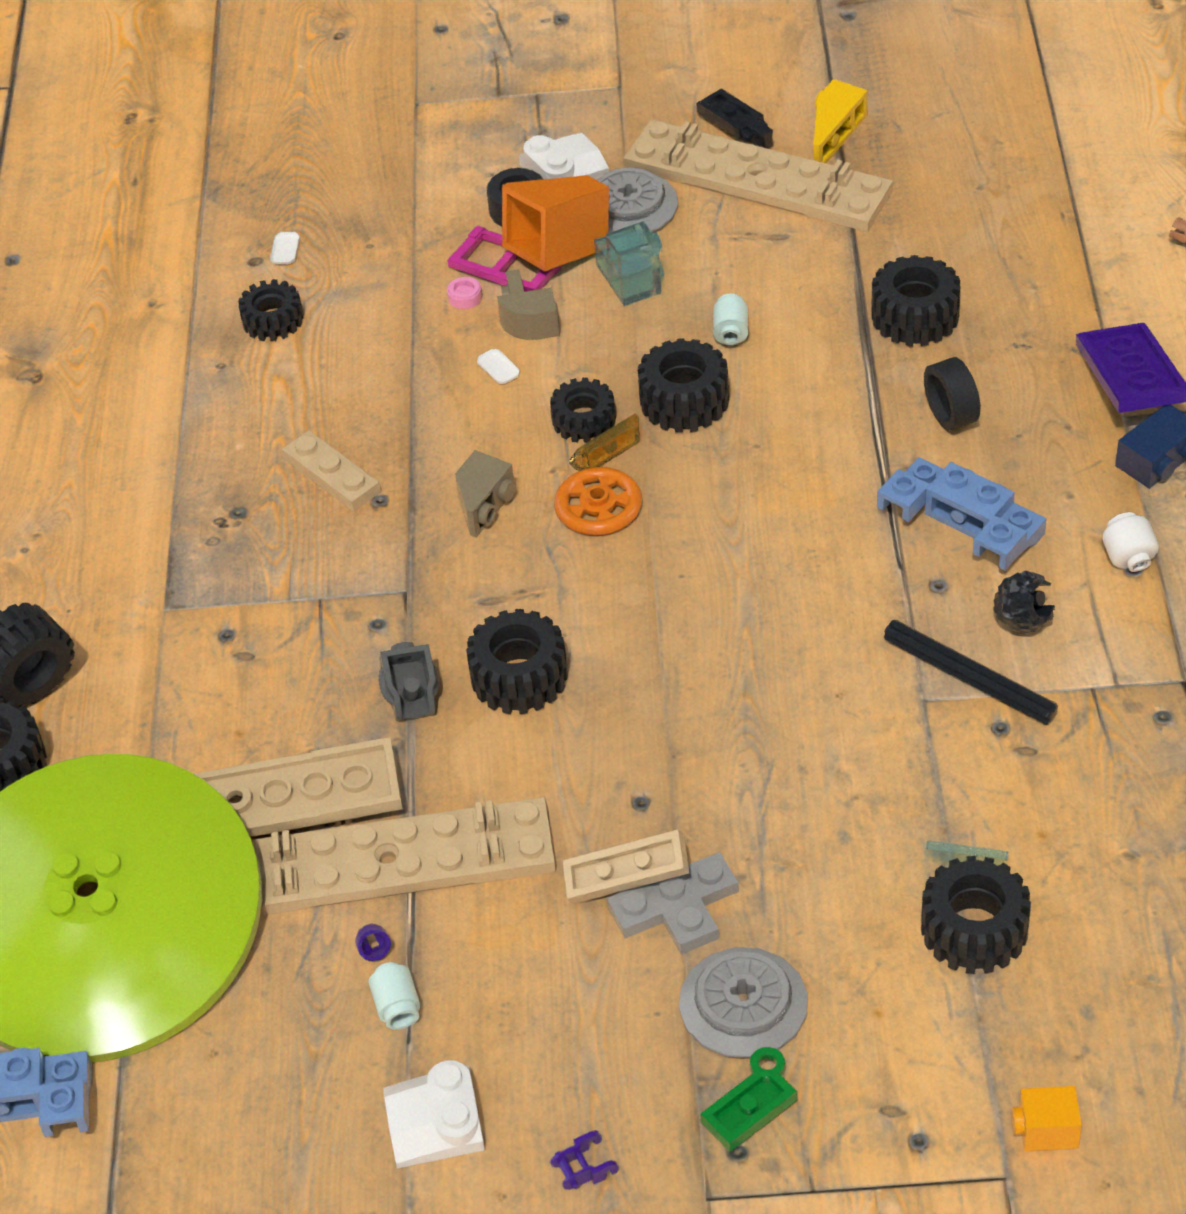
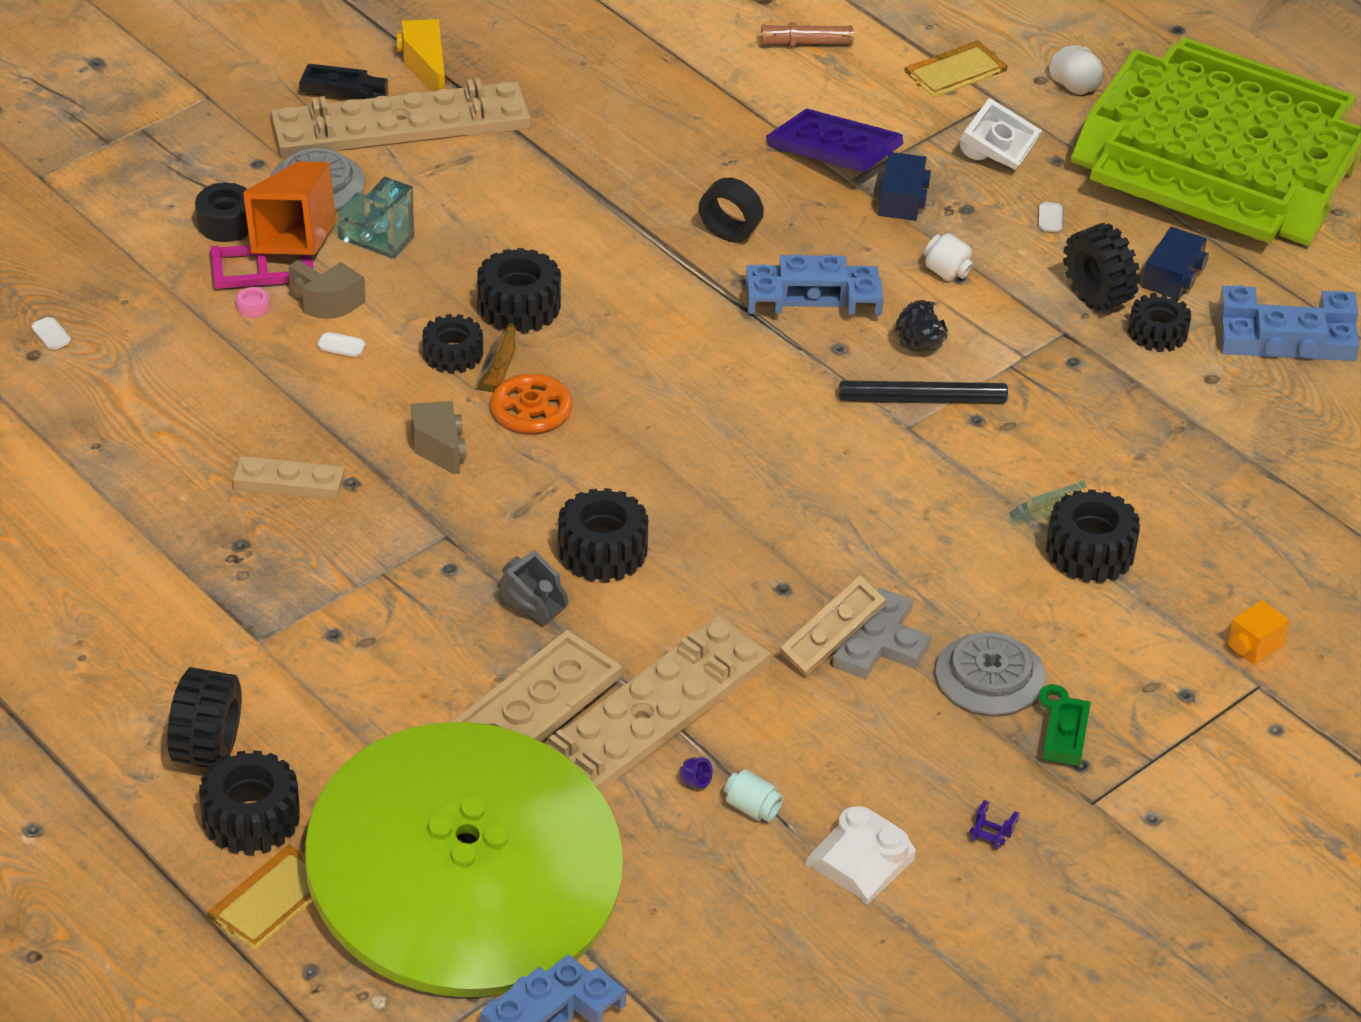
camera: 45 degrees left, 5 degrees down
(272, 323) = (99, 369): black tyre -> none
(563, 157) = (230, 164): white slope -> none
(730, 320) = (500, 230): light aqua brick -> none
(915, 300) = (631, 158): black tyre -> none

